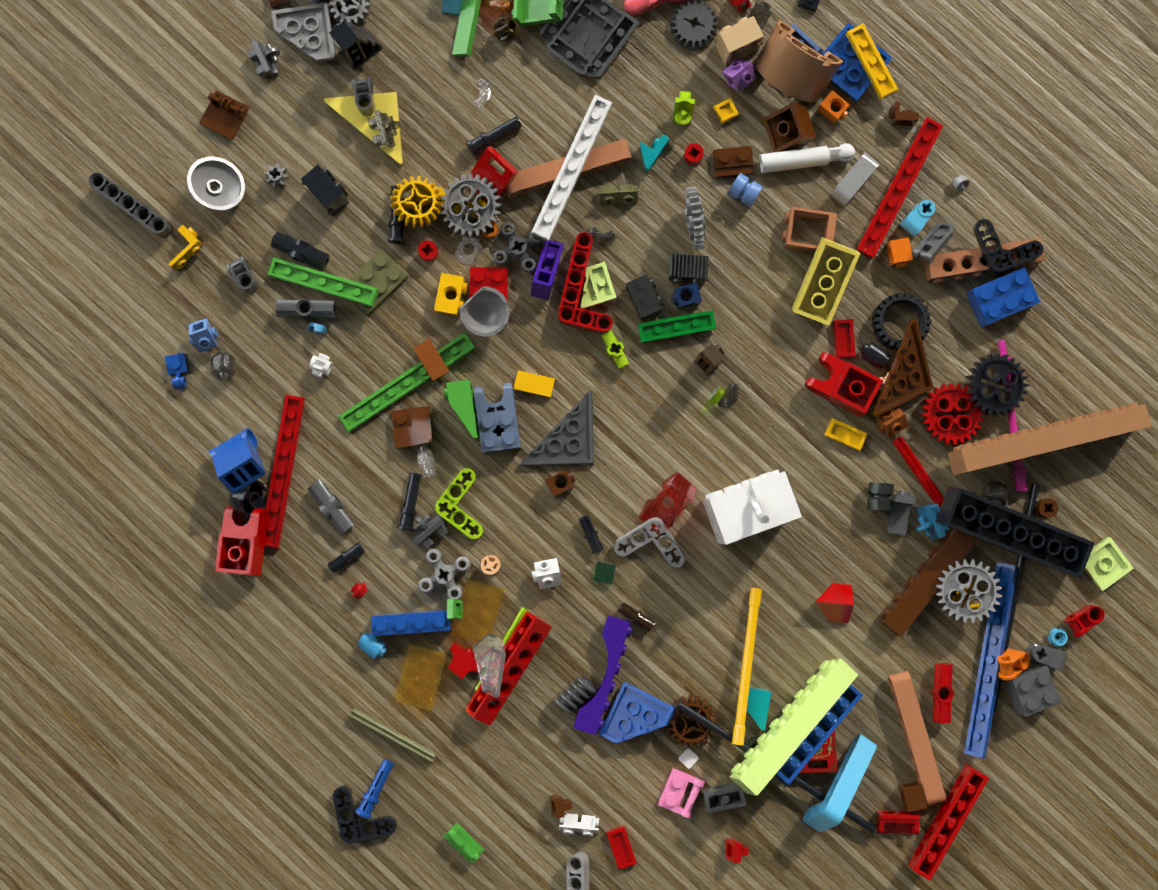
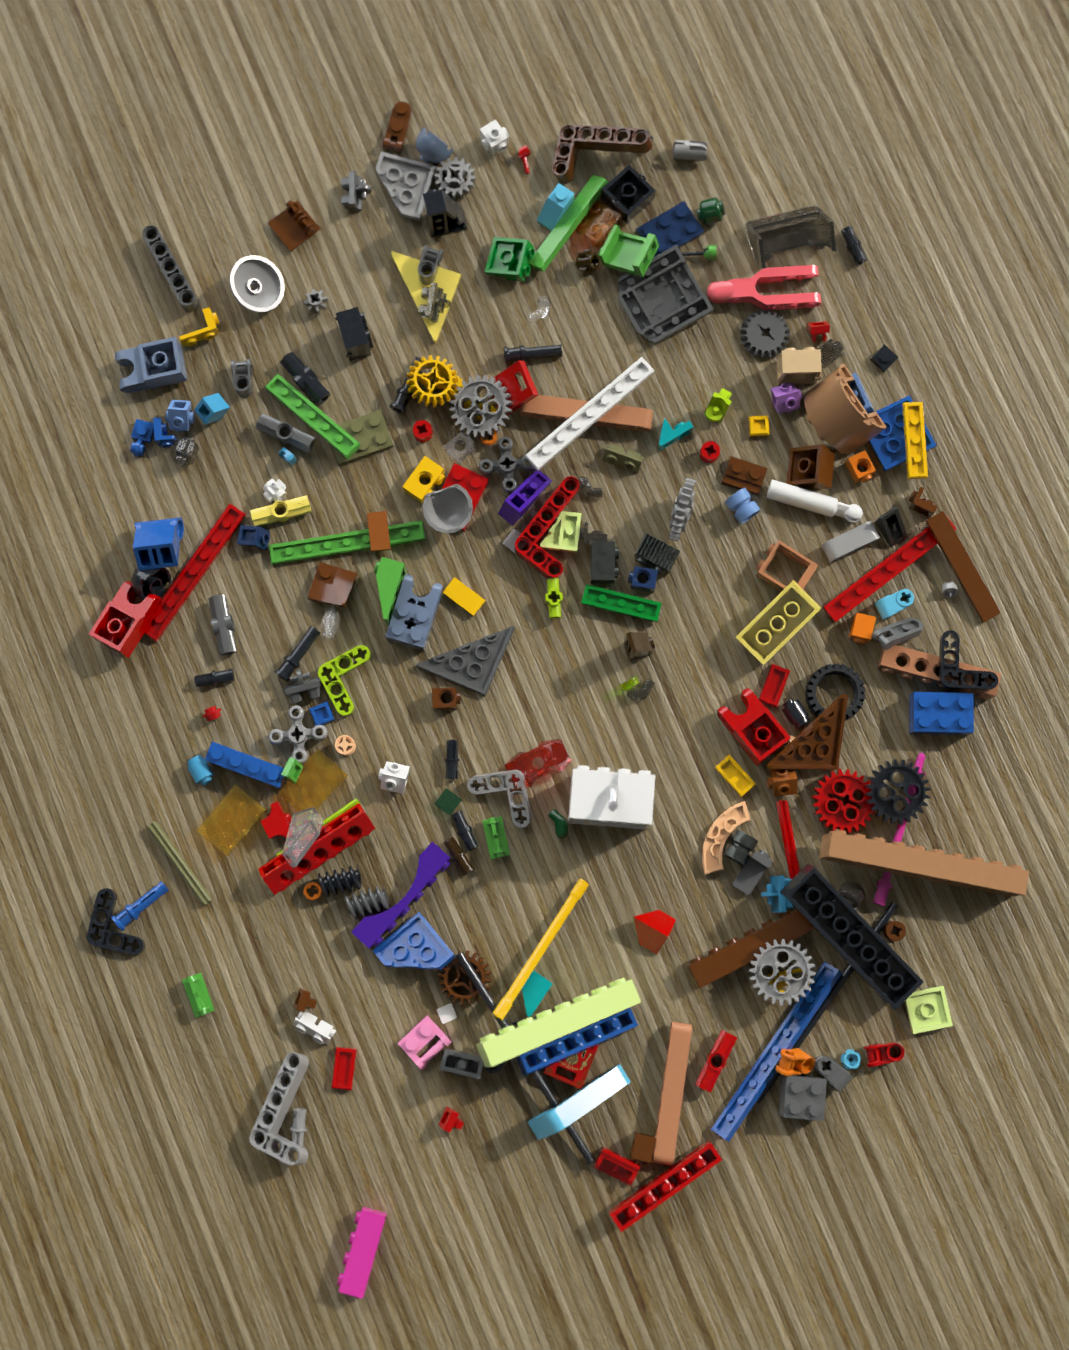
camera: 20 degrees right, 5 degrees down
(158, 300) = (154, 365): none -> sand blue brick
(192, 356) = (160, 431): none -> blue bracket
(228, 316) = (211, 408): none -> dark azure brick
(321, 415) = (253, 537): none -> dark blue bracket
(325, 389) = (293, 507): none -> light yellow piece
(434, 57) = (510, 258): none -> green plate
(456, 546) = (322, 714): none -> blue tile
(527, 708) = (309, 886): none -> orange bush
(543, 687) = (340, 881): none -> black piece
(553, 314) = (510, 541): none -> light grey tile
(627, 276) = (593, 536): none -> clear smoke bracket
(631, 592) = (464, 831): none -> black pin
(661, 585) = (496, 837): none -> bright green hinge
(712, 546) = (561, 824): none -> dark green arm
(854, 493) = (718, 834): none -> light nougat tile
(885, 149) = (891, 527): none -> pearl dark grey slope
(963, 157) = (962, 566): none -> reddish brown tile

